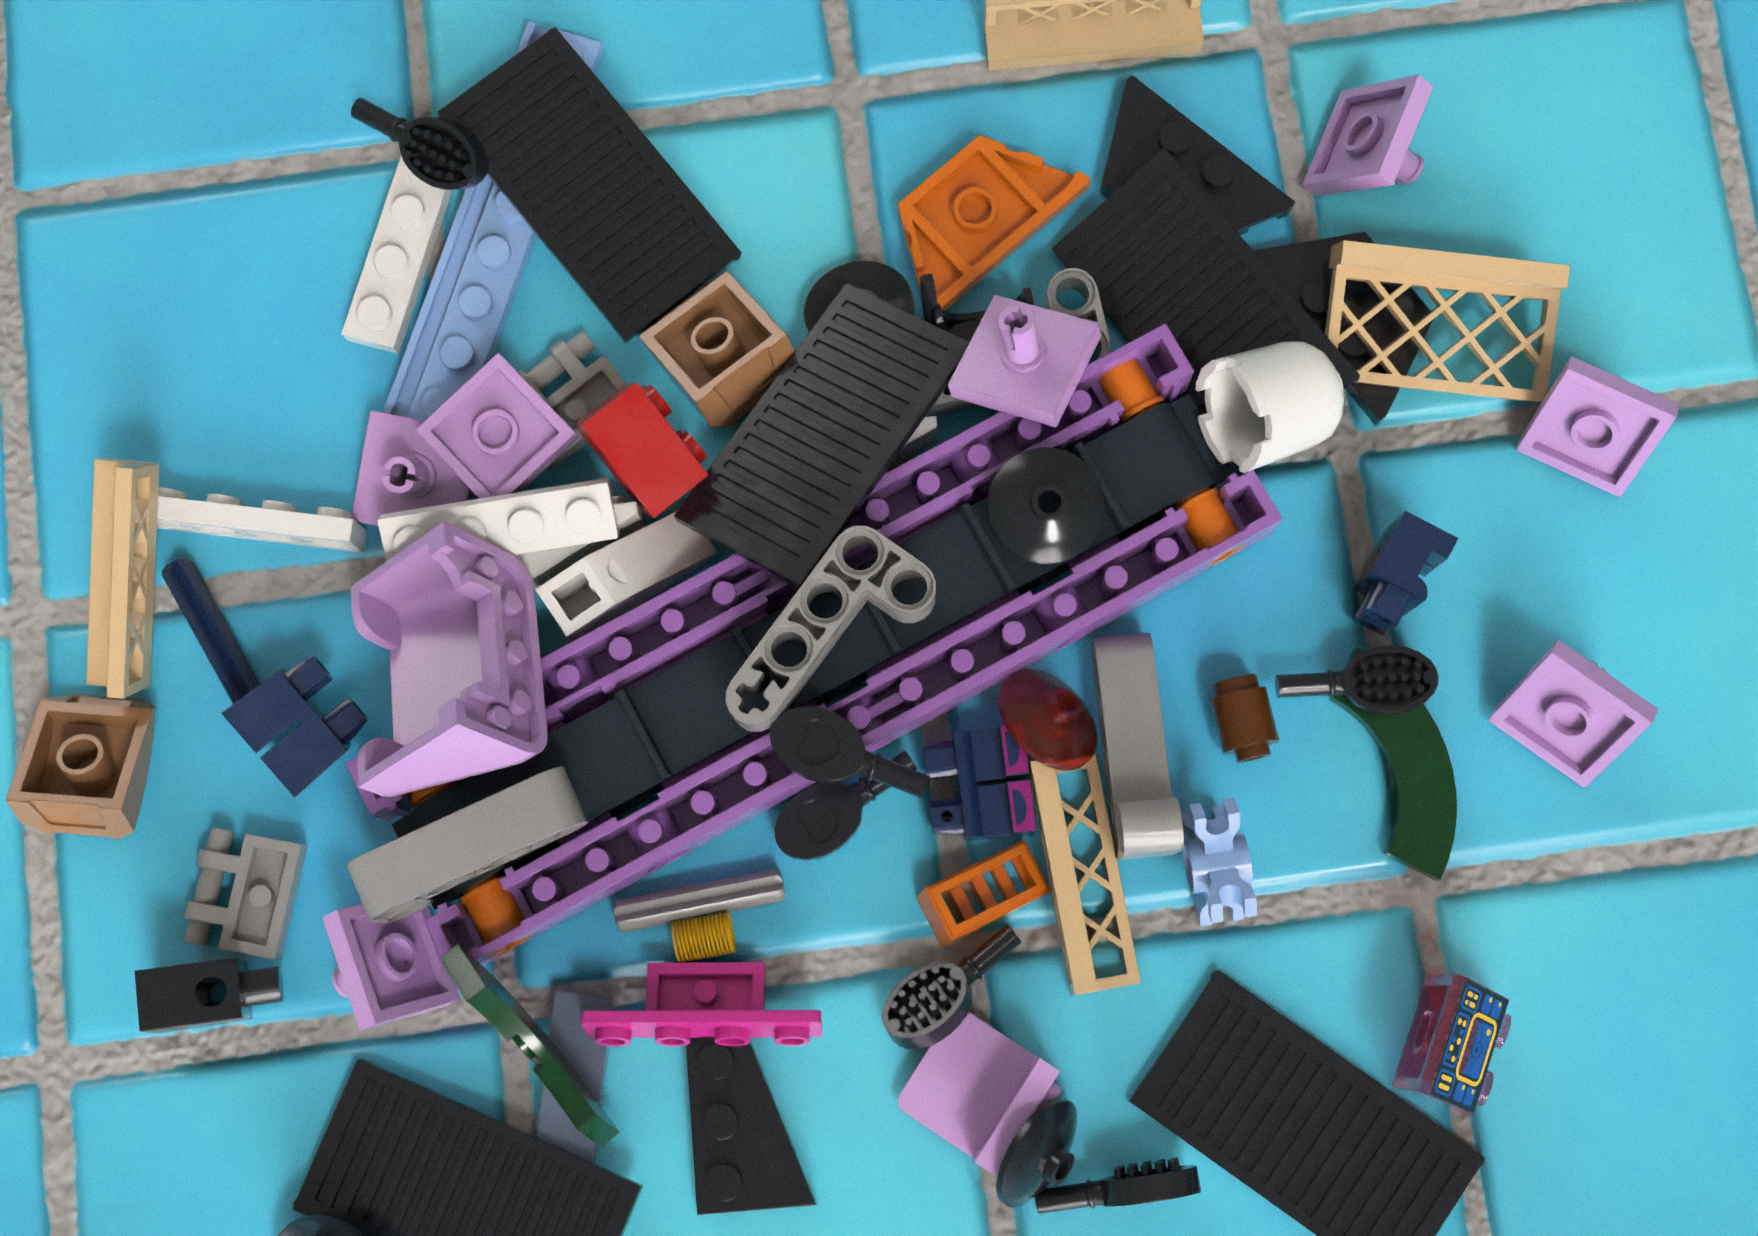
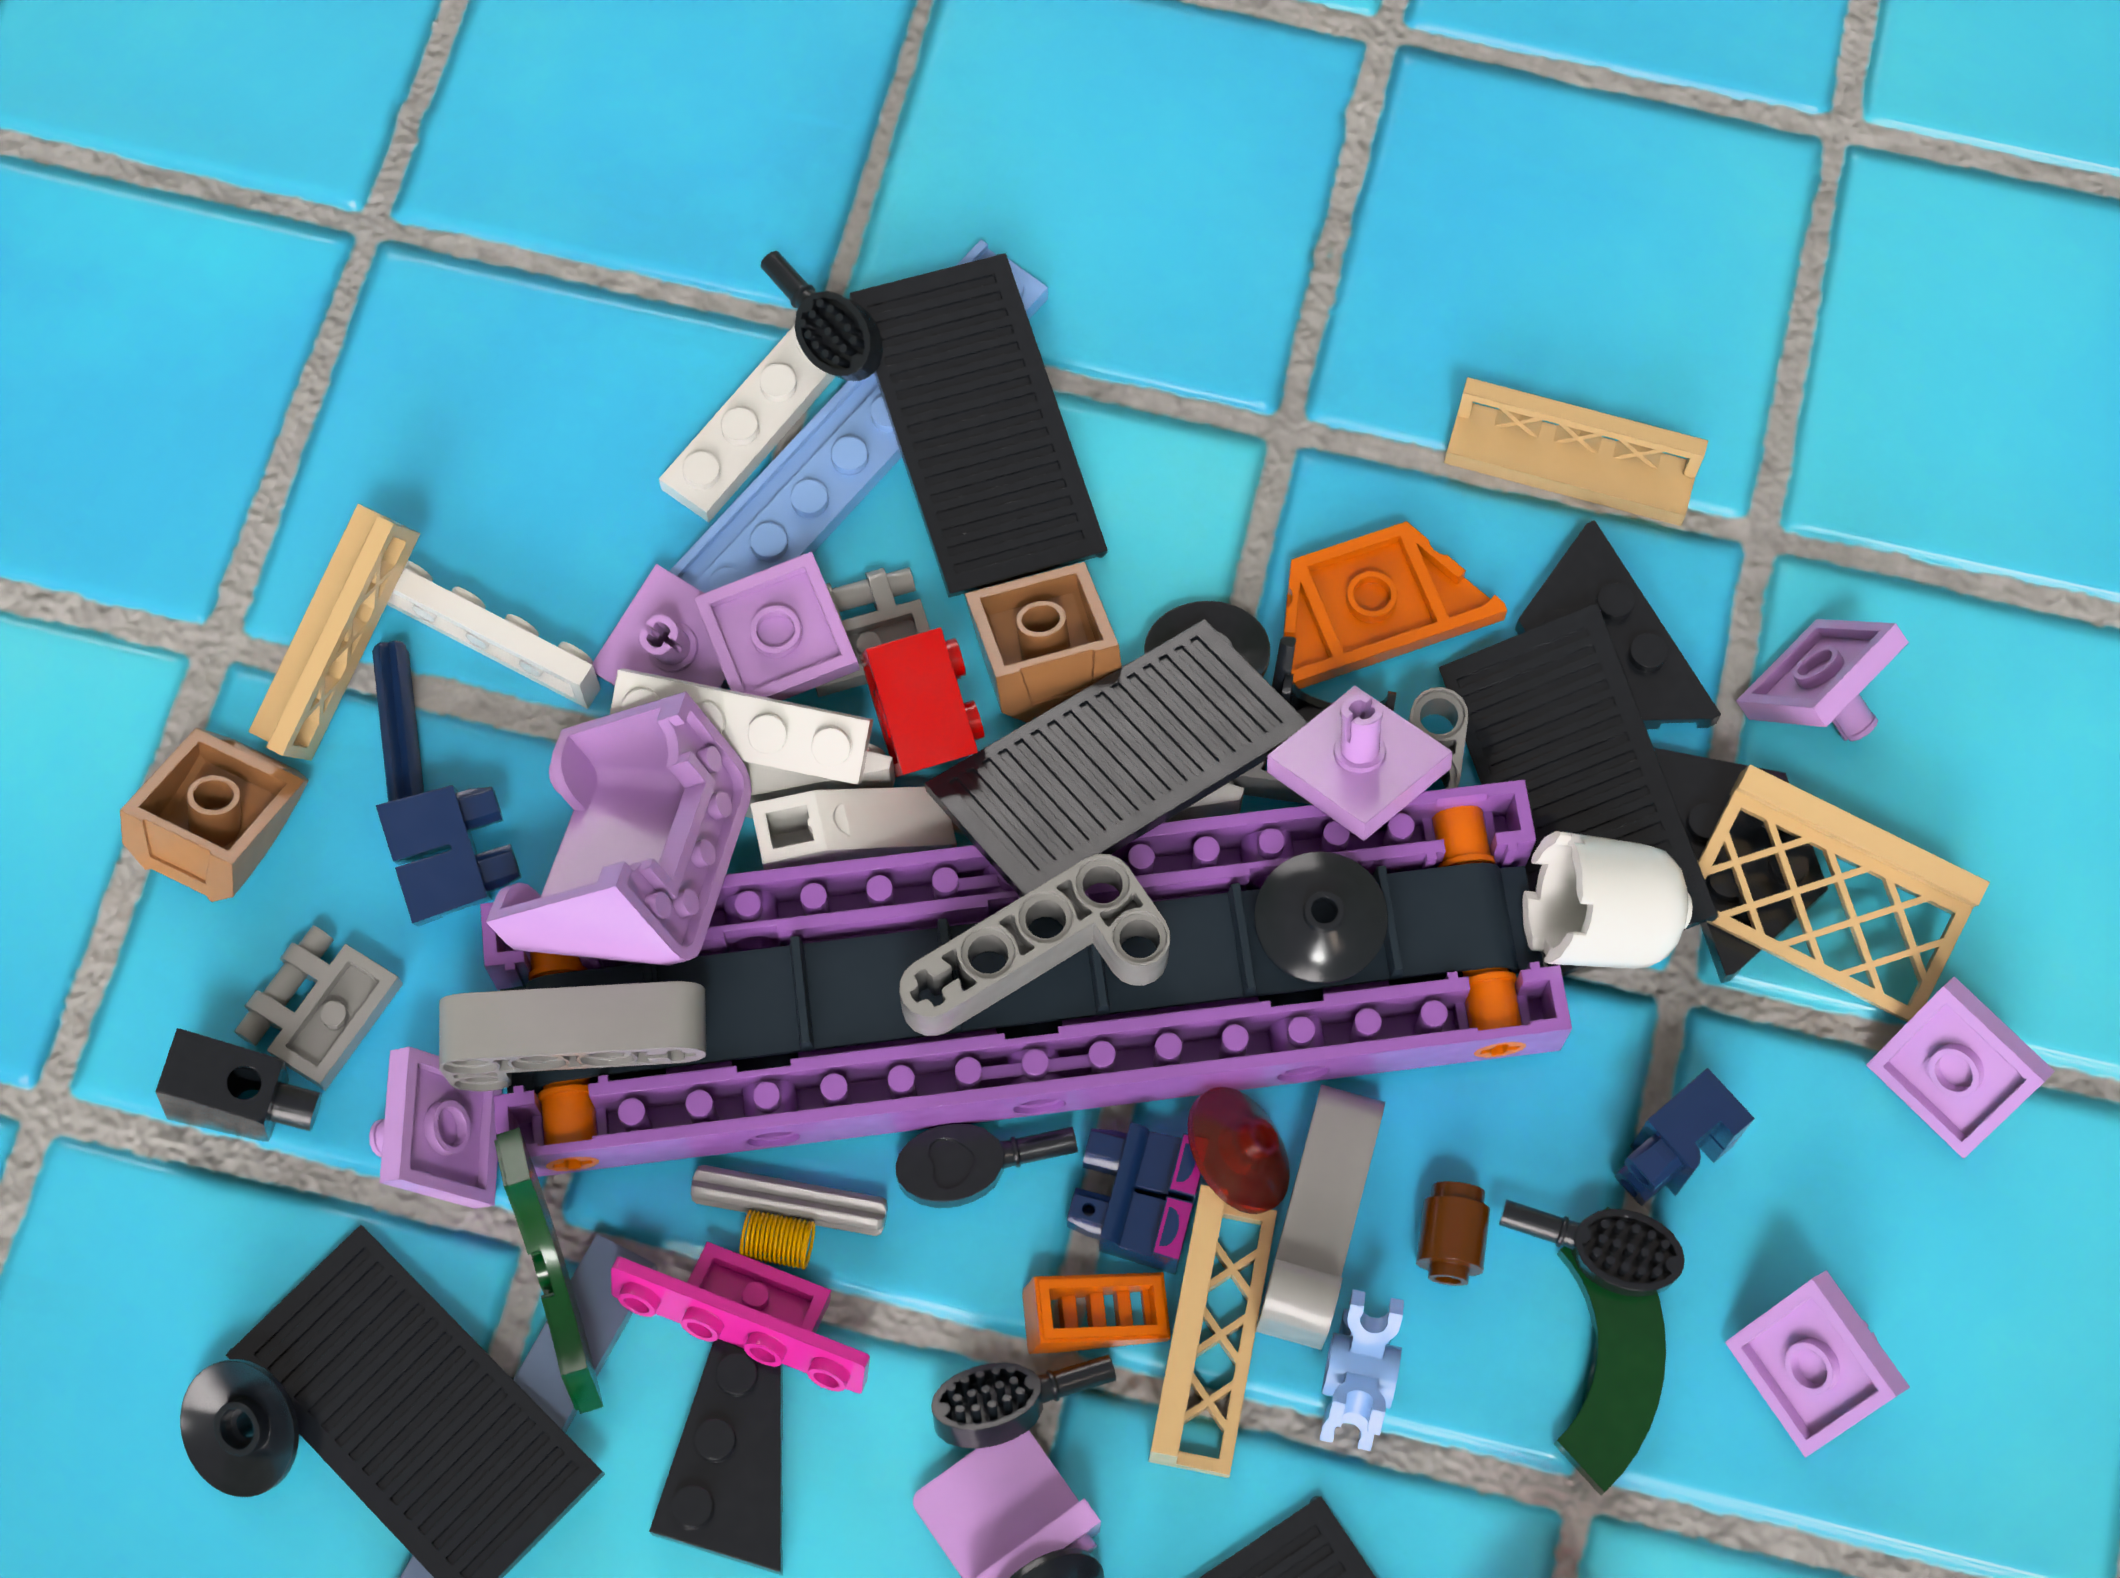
camera: 15 degrees right, 10 degrees down
(831, 750) = (991, 1082): black piece -> none

